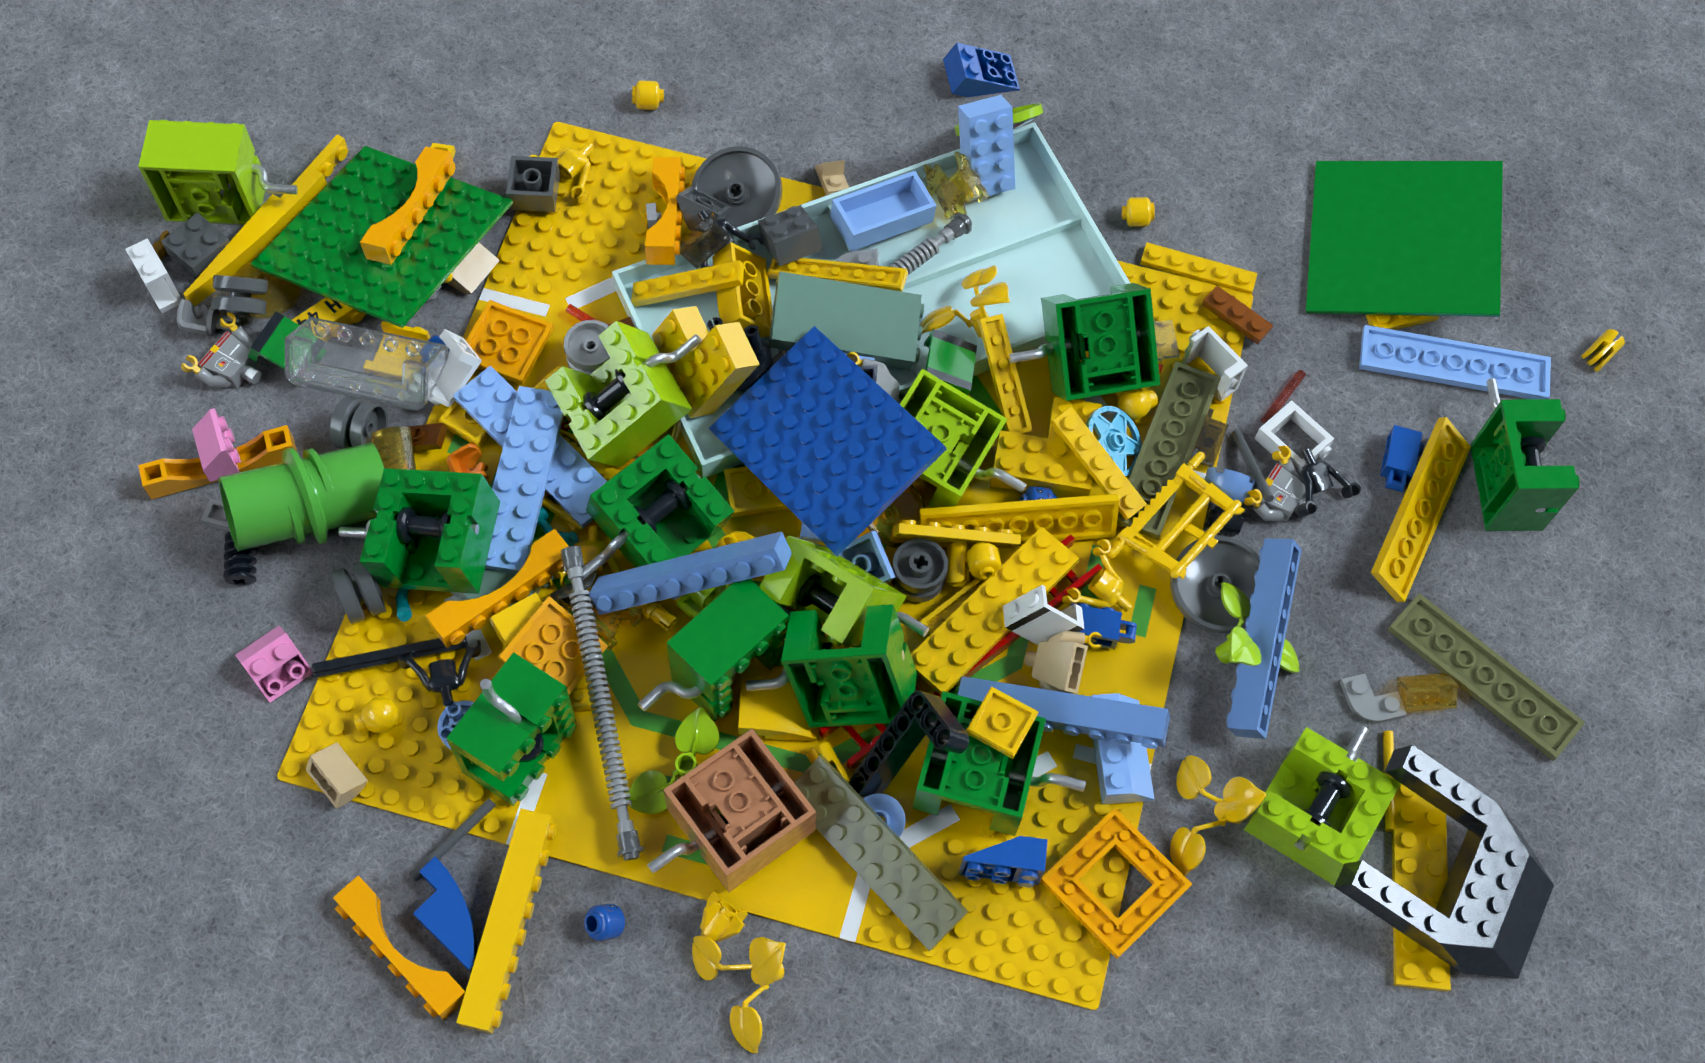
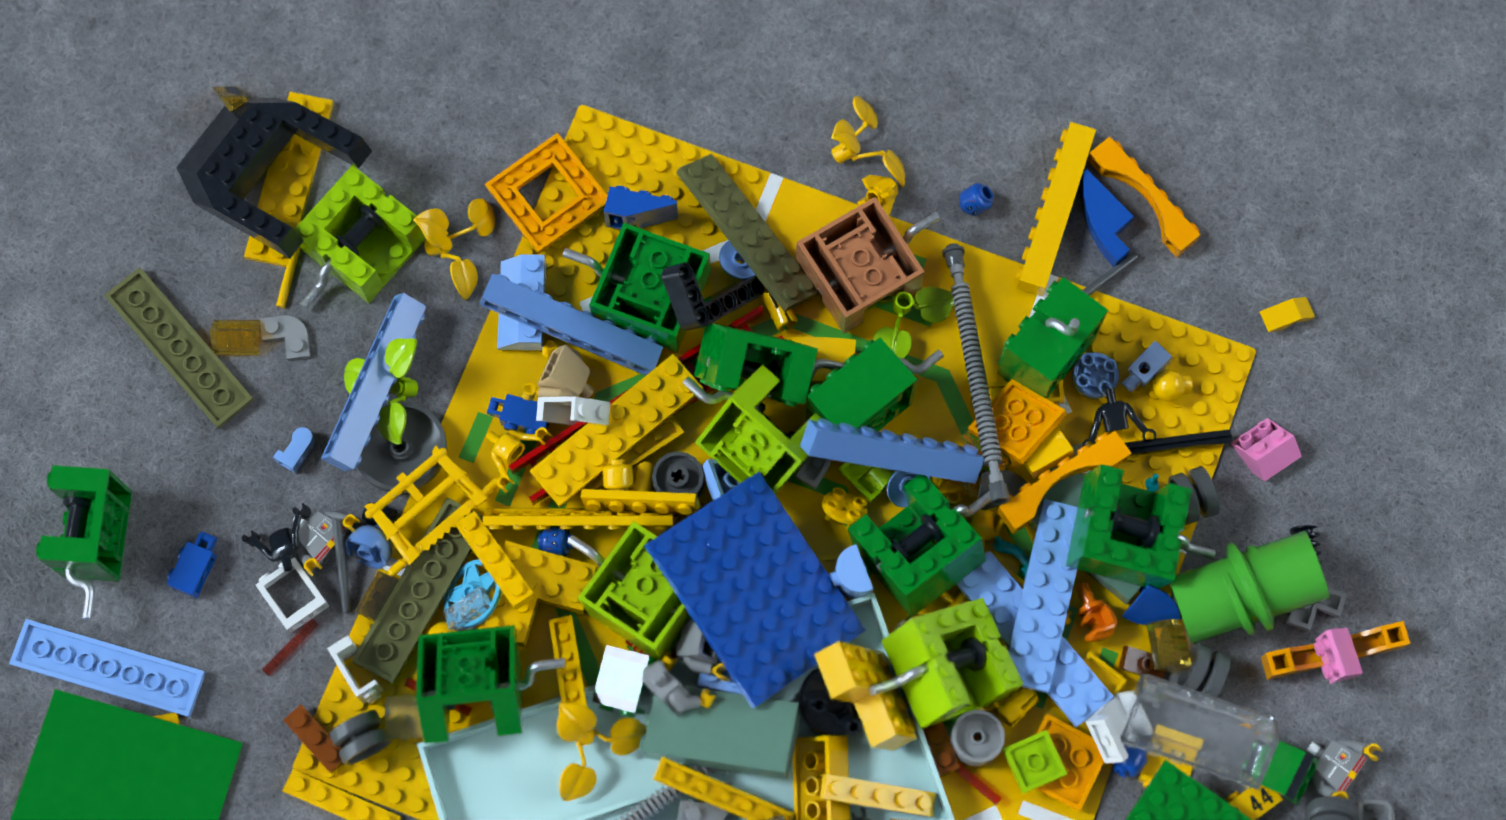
camera: 170 degrees left, 10 degrees up
(236, 815) = (1287, 313): none -> yellow slope
(336, 775) = (1203, 338): tan brick -> none
(402, 732) = (1153, 359): none -> sand blue torso
(533, 331) = (1034, 761): none -> lime plate
(727, 473) = (851, 575): none -> light blue brick
(904, 341) = (670, 690): none -> light grey torso
(1002, 722) = (629, 299): yellow plate -> none
(1117, 419) = (466, 609): none -> clear plate
(1195, 305) = (360, 737): none -> dark grey wheel
(1325, 583) = (297, 450): none -> light blue leg
(1420, 510) = (190, 508): yellow plate -> none
(1520, 968) = (230, 96): none -> clear yellow slope

